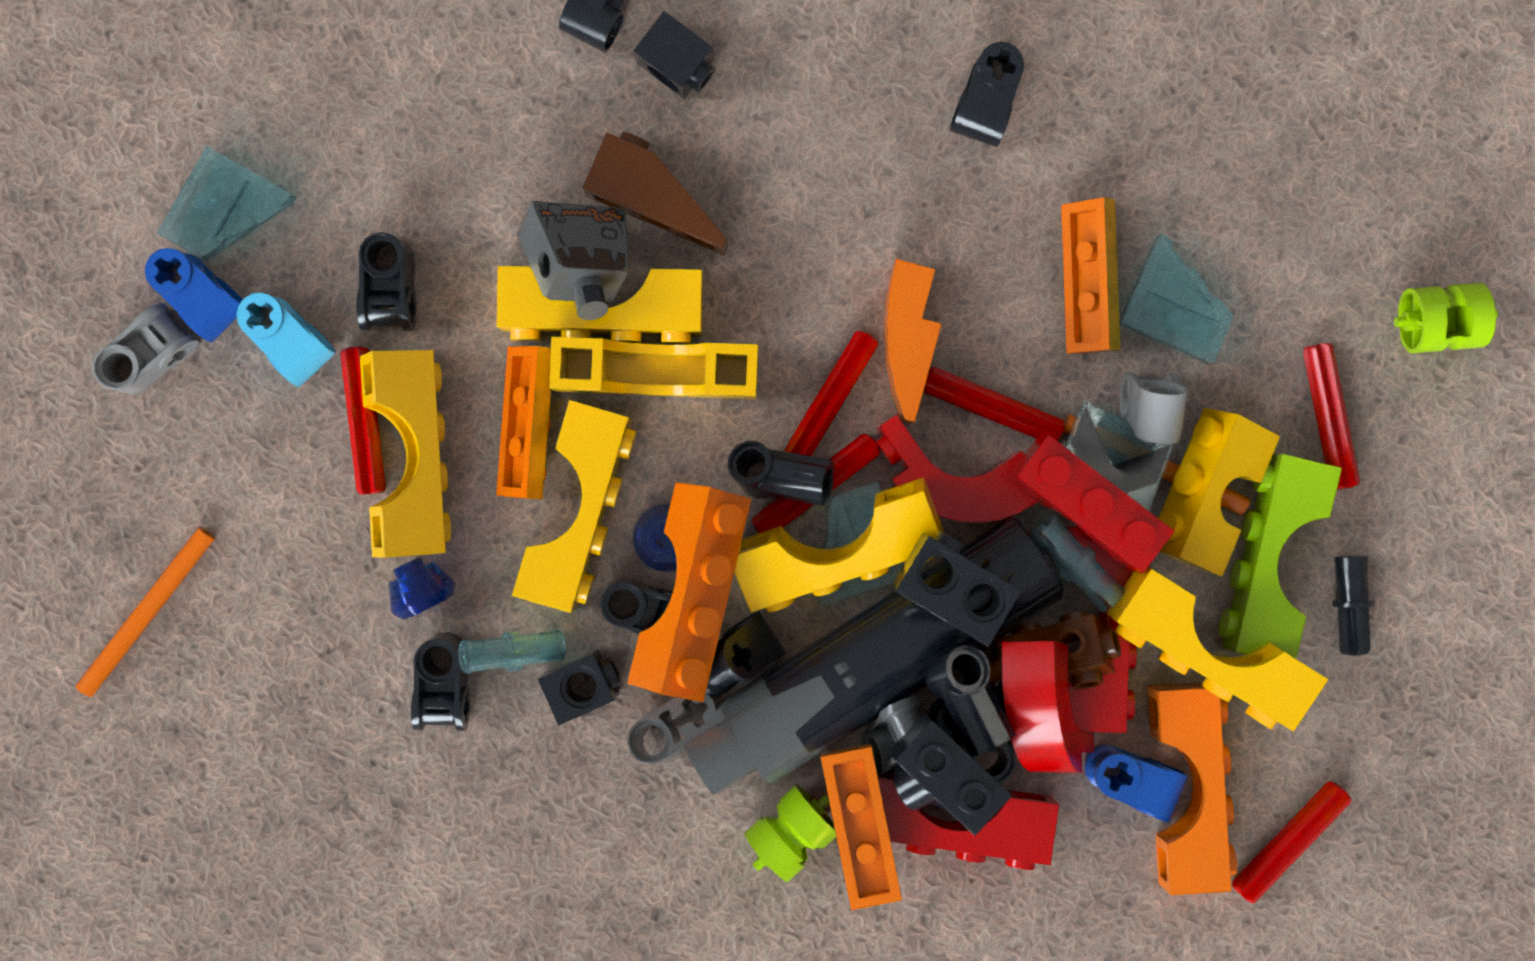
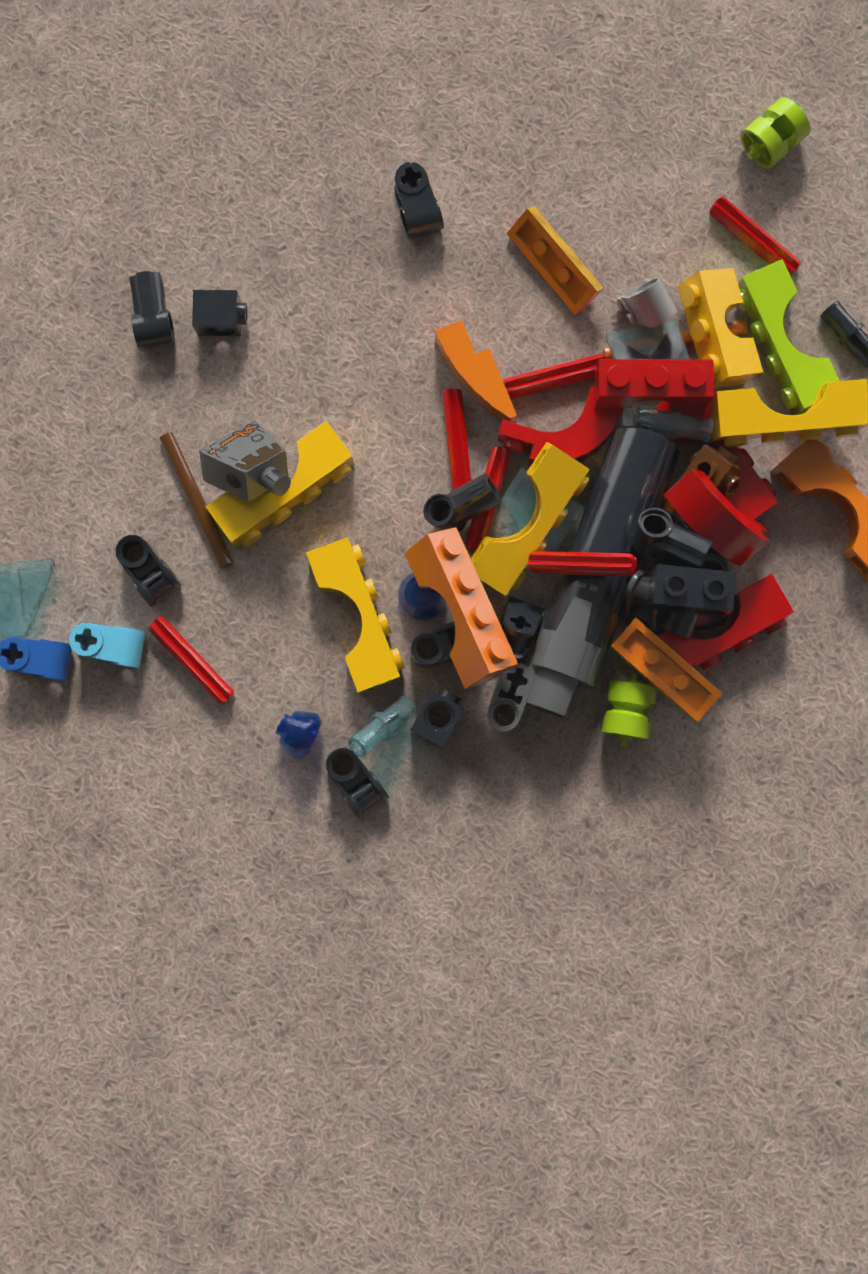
camera: 30 degrees left, 5 degrees down
(145, 612) = (144, 873): orange piece -> none
(151, 344) = (31, 712): light grey piece -> none
(404, 391) = (204, 623): yellow arch -> none
(498, 245) = (196, 500): none -> reddish brown bar
(524, 423) = (288, 588): orange plate -> none
(637, 180) = (264, 400): reddish brown slope -> none
(653, 369) = (364, 485): yellow arch -> none
(856, 647) = (582, 563): none -> red axle
(950, 597) = (615, 493): black brick -> none
(1141, 781) = (810, 528): blue piece -> none
(1175, 306) = (616, 242): clear light blue wing -> none

